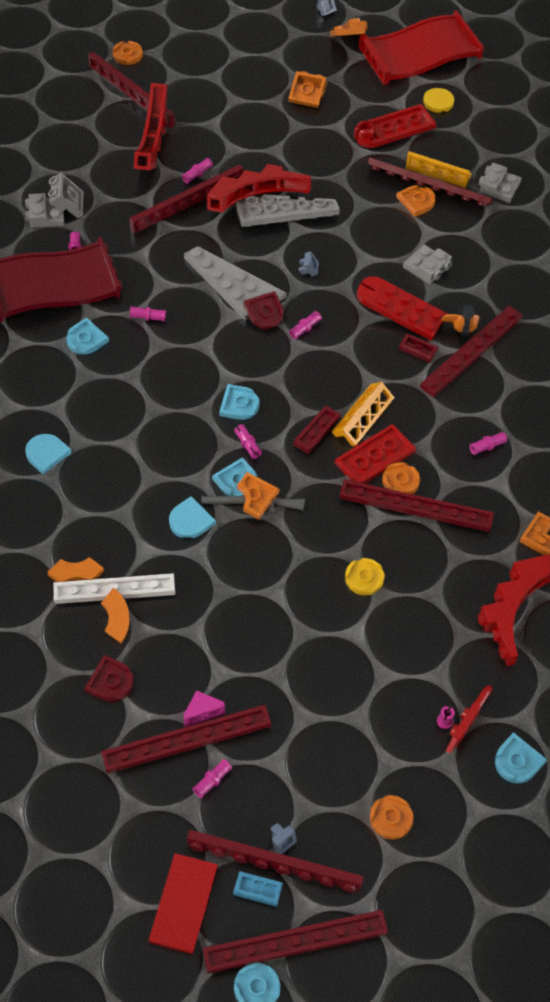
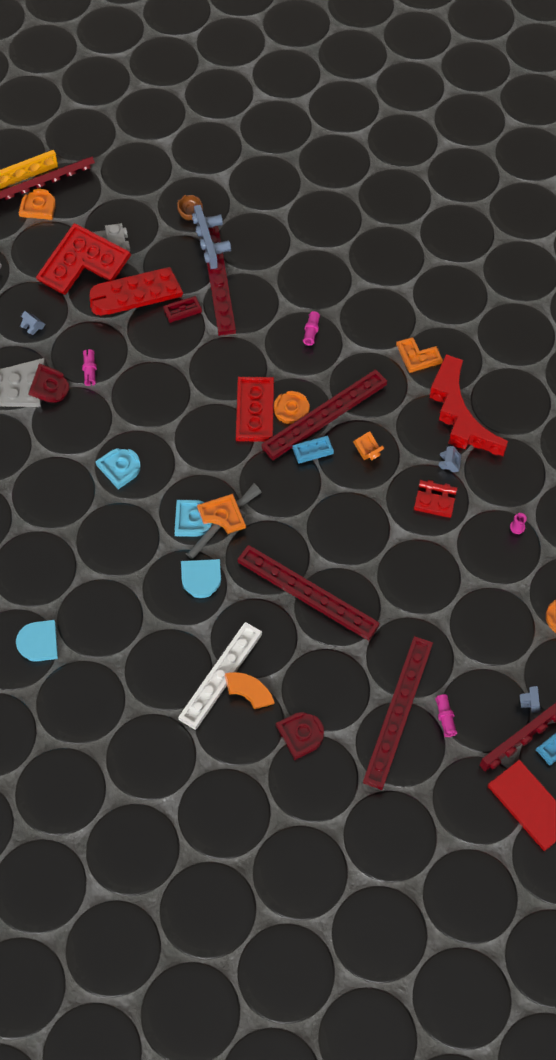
camera: 50 degrees left, 5 degrees up
(84, 570) = (172, 702): orange tile -> none
(202, 709) = (381, 681): dark pink slope -> none
(239, 603) = (308, 592): none -> dark red plate
(248, 441) = (165, 485): dark pink pin -> none
(316, 429) = (197, 430): dark red plate -> none
(362, 405) = (207, 388): light orange fence -> none
(364, 576) = (355, 492): yellow tile -> none
(374, 518) = (313, 449): none -> dark azure plate
(398, 248) = (79, 251): none -> red plate
(409, 643) = (433, 503): none -> red plate
(414, 555) = (368, 446): none -> orange bracket
(461, 625) = (452, 459): none -> sand blue tile
(464, 321) = (192, 263): cap -> none
(469, 716) = (531, 510): red plate -> none
(488, 320) = (206, 243): none -> sand blue plate
(499, 183) = (77, 141): light grey plate -> none
(514, 288) = (186, 206): none -> dark orange hair

